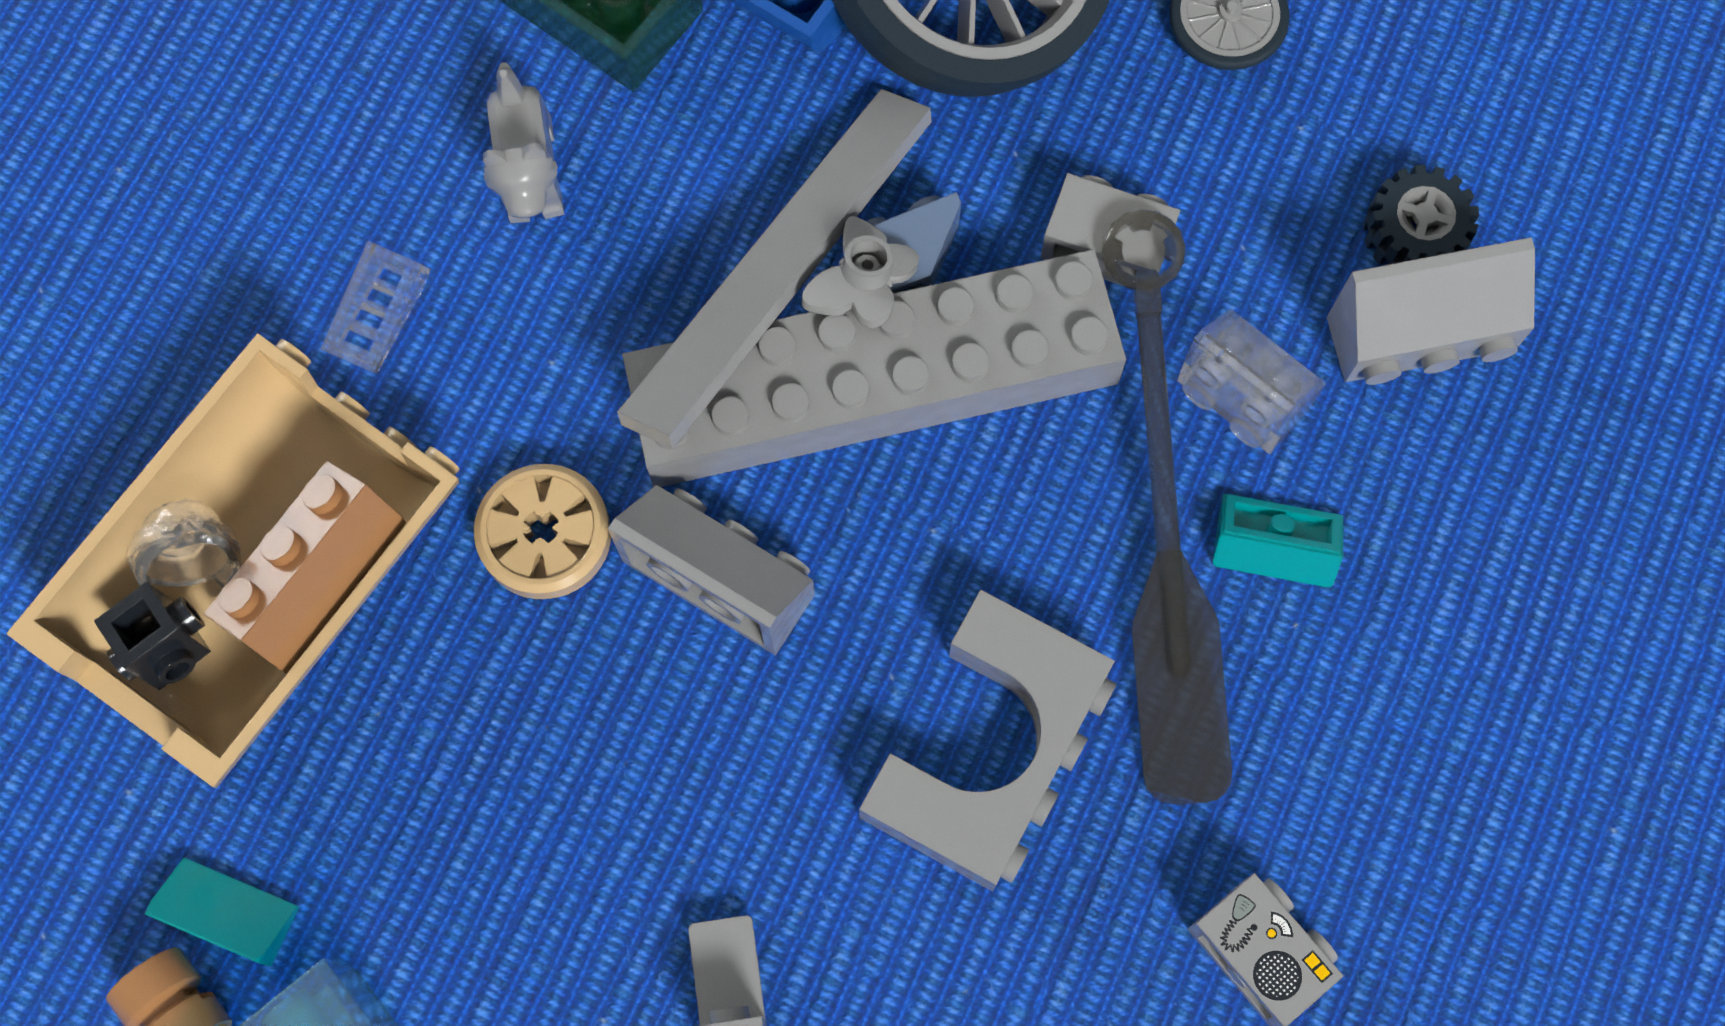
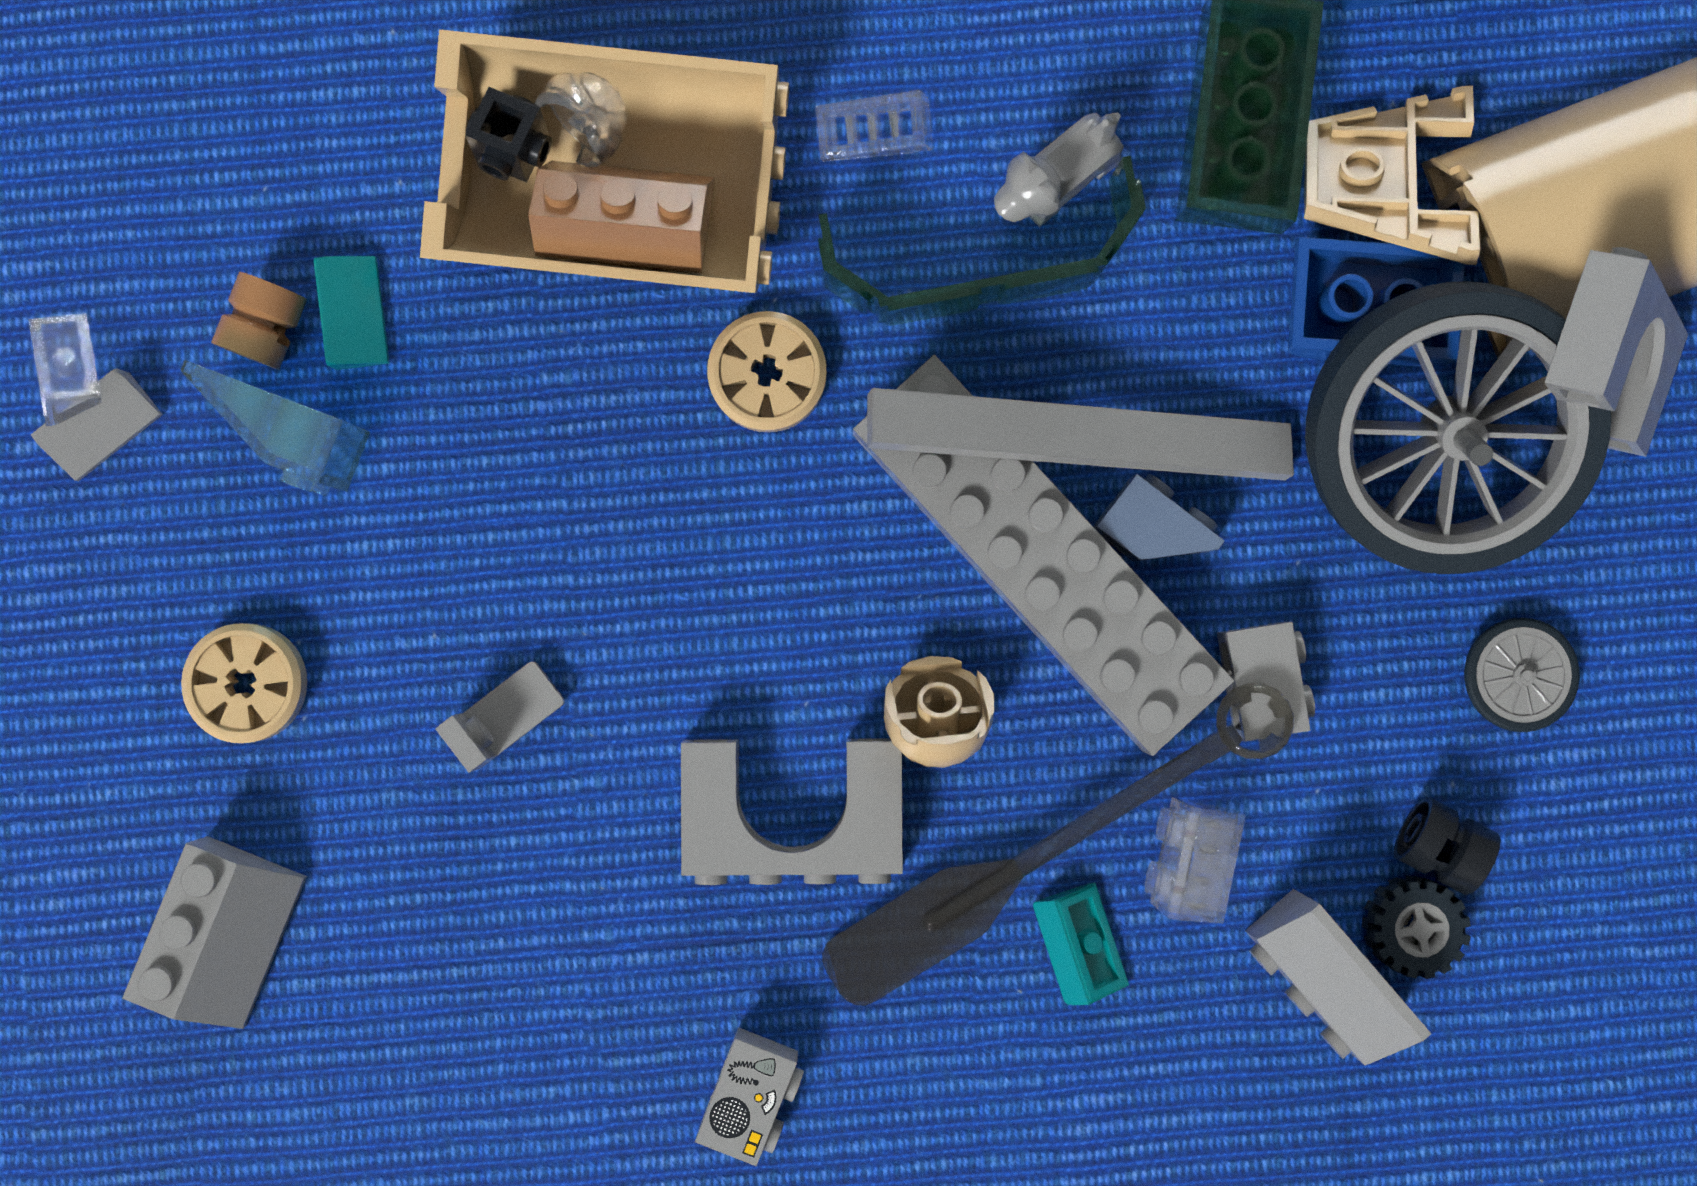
camera: 55 degrees right, 15 degrees up
(525, 392) = (1006, 289): none -> windscreen
(714, 565) = (810, 523): light grey slope -> none
(862, 277) = (1104, 510): light grey animal -> none
(971, 539) = (938, 711): none -> tan cylinder
(1361, 150) = (1456, 850): none -> black wheel

